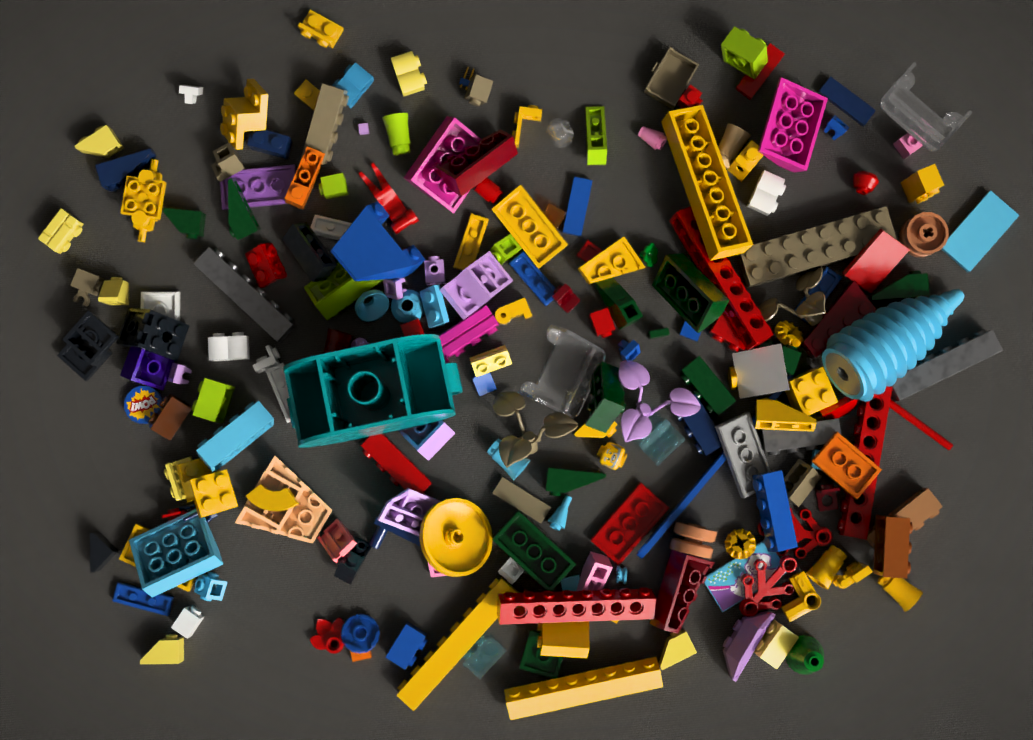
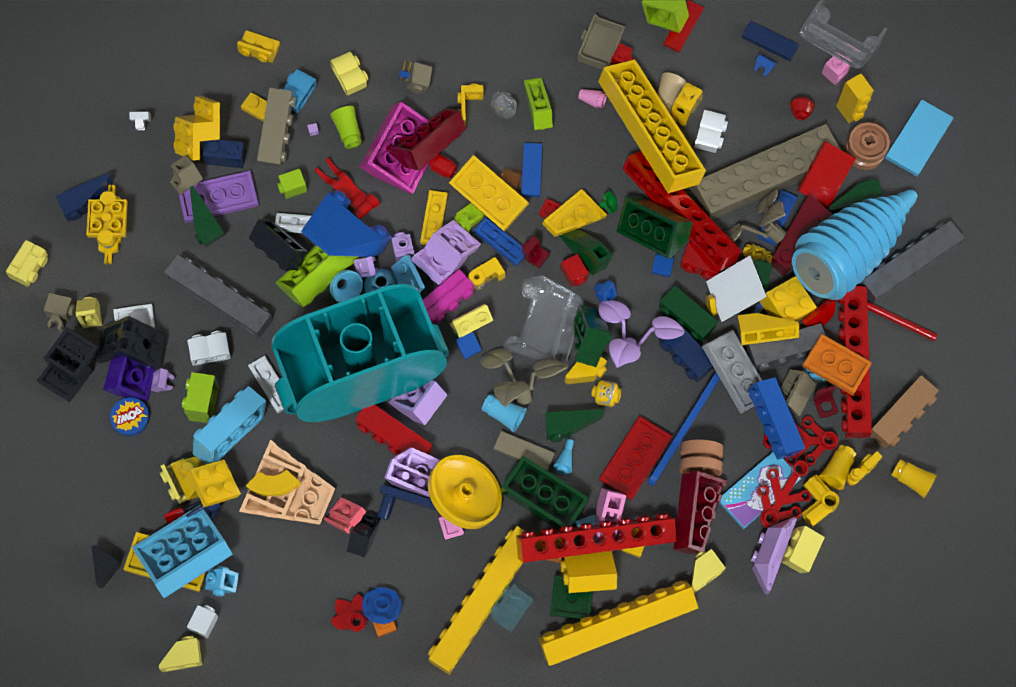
camera: 15 degrees left, 15 degrees down
(100, 143) = (56, 178): light yellow slope -> none
(138, 598) = (152, 608): blue tile -> none
(169, 416) = (158, 421): reddish brown brick -> none
(187, 221) = (151, 236): dark green slope -> none
(265, 264) = (234, 265): red bracket -> none
(265, 363) = (249, 356): white bracket -> none
(304, 178) = (263, 179): orange slope -> none
(406, 645) = (431, 610): blue brick -> none
(511, 570) = (525, 518): white tile -> none
(622, 574) = (637, 507): medium azure bush -> none
(658, 333) = (631, 273): dark green tile -> none
(661, 442) = (652, 373): clear light blue bracket -> none
(735, 551) = (745, 465): yellow gear -> none
(792, 126) = (722, 66): dark pink slope -> none
(806, 655) = (835, 558): green cone -> none
(892, 546) = (896, 429): dark orange brick -> none

